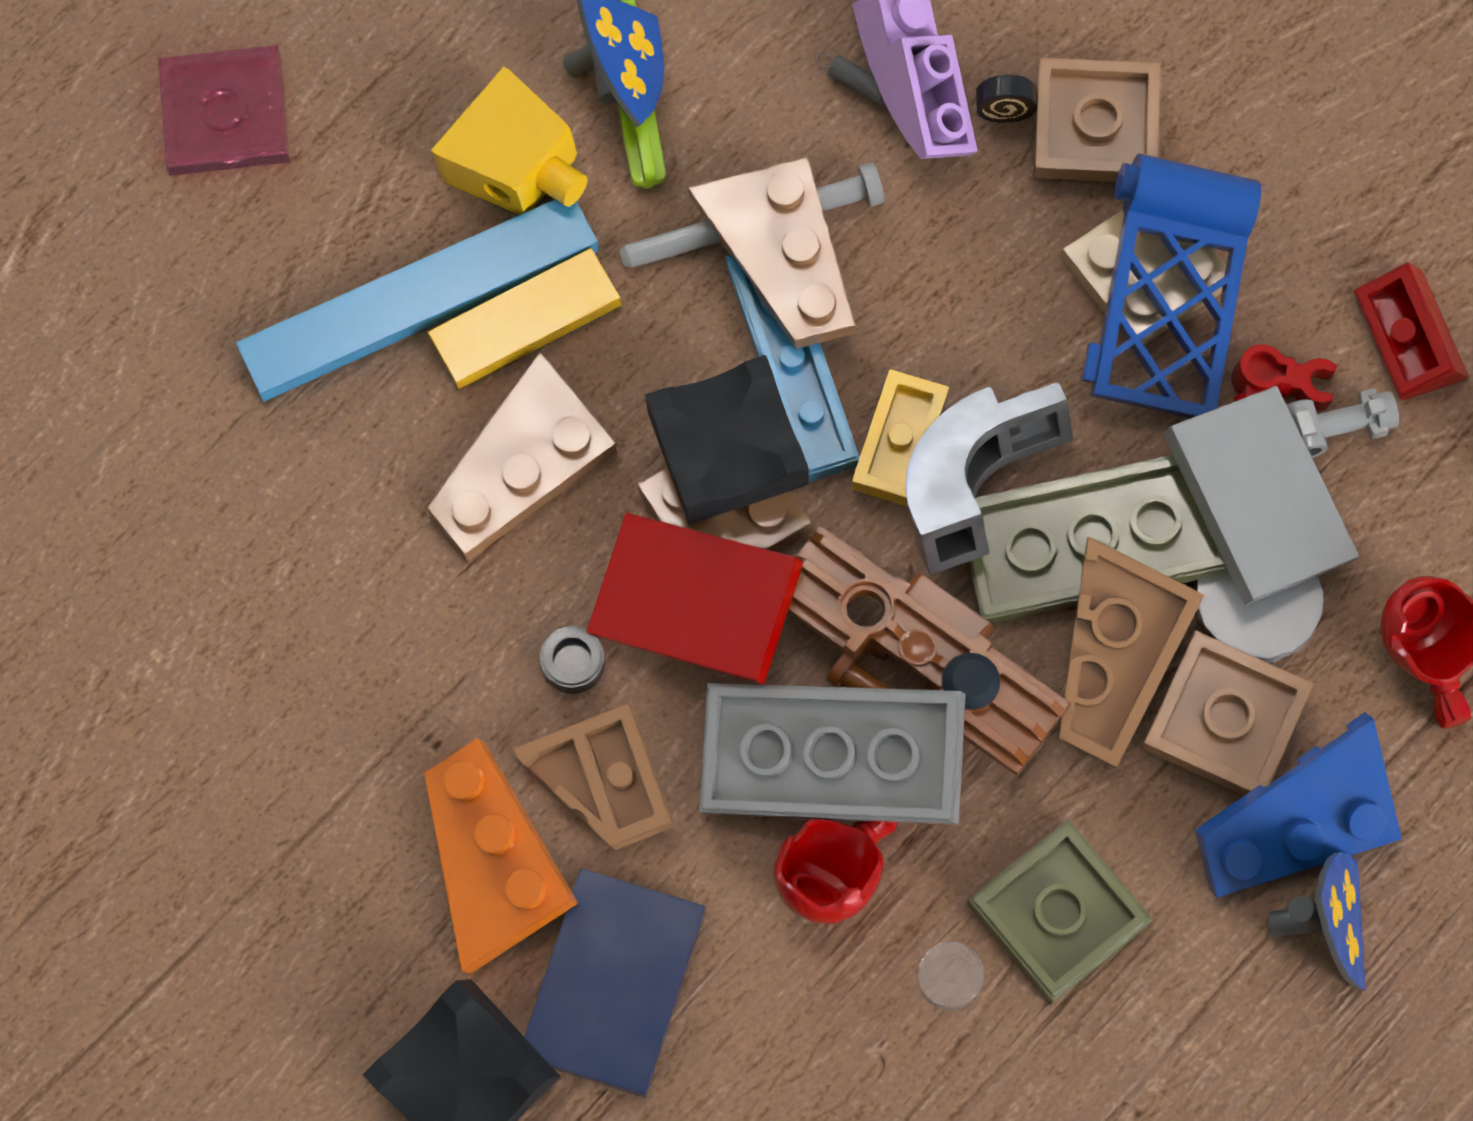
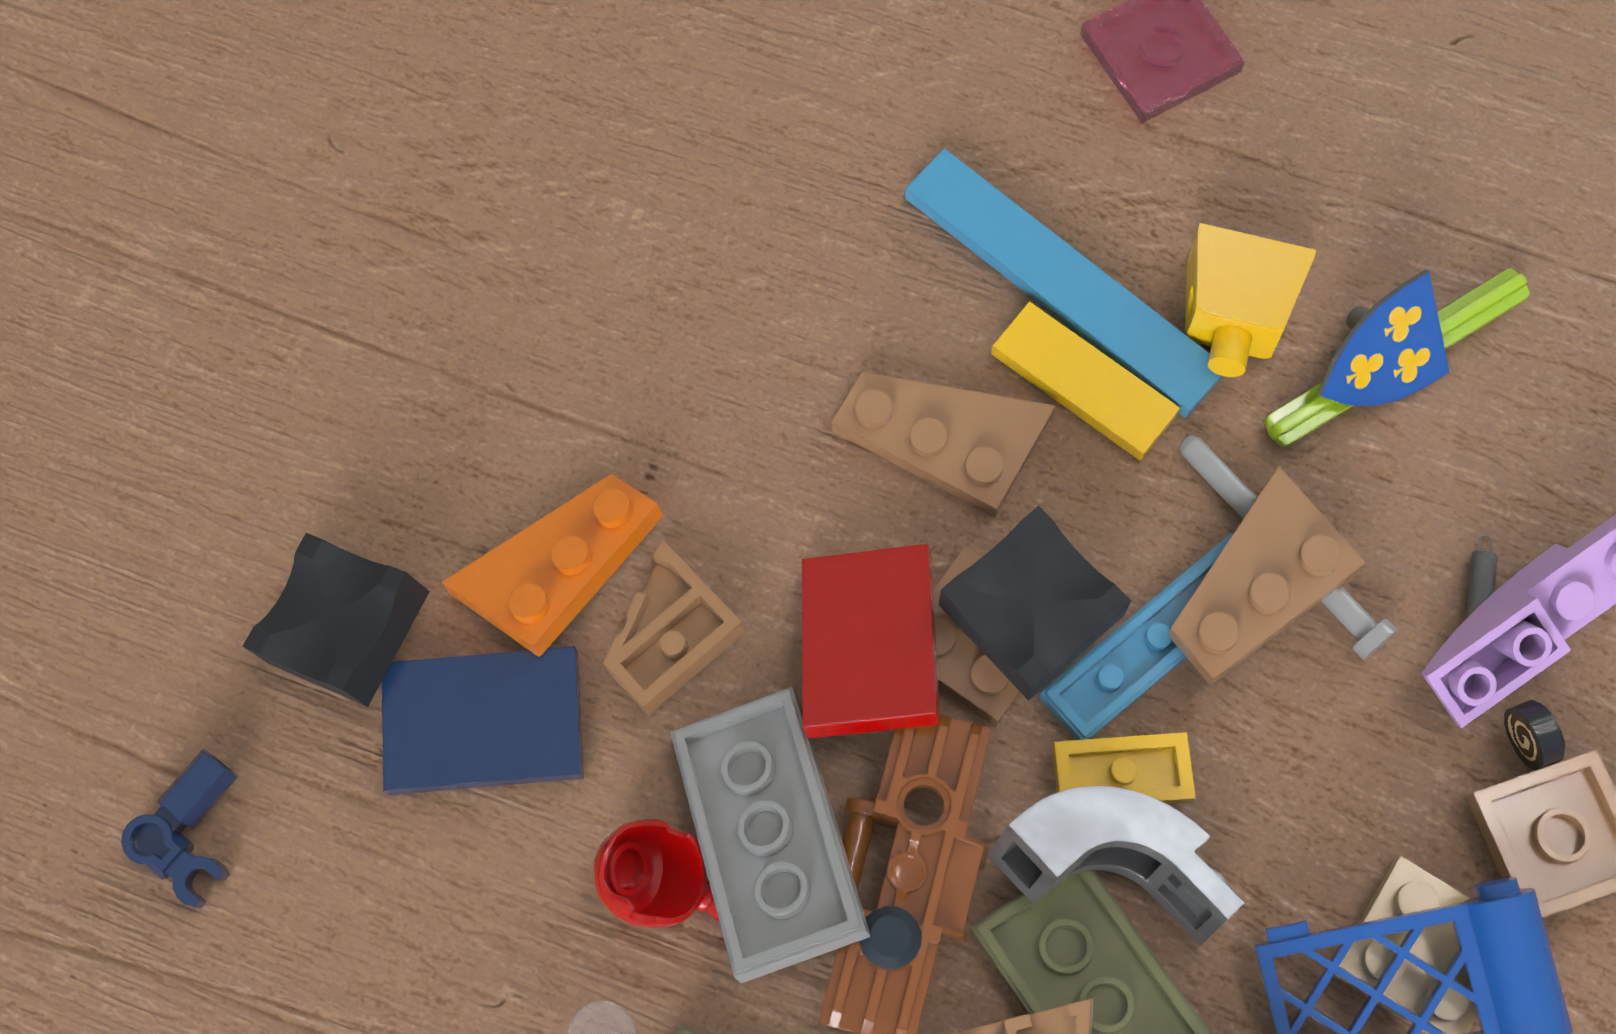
camera: 70 degrees right, 0 degrees up
(572, 660) = (773, 559): tile -> none

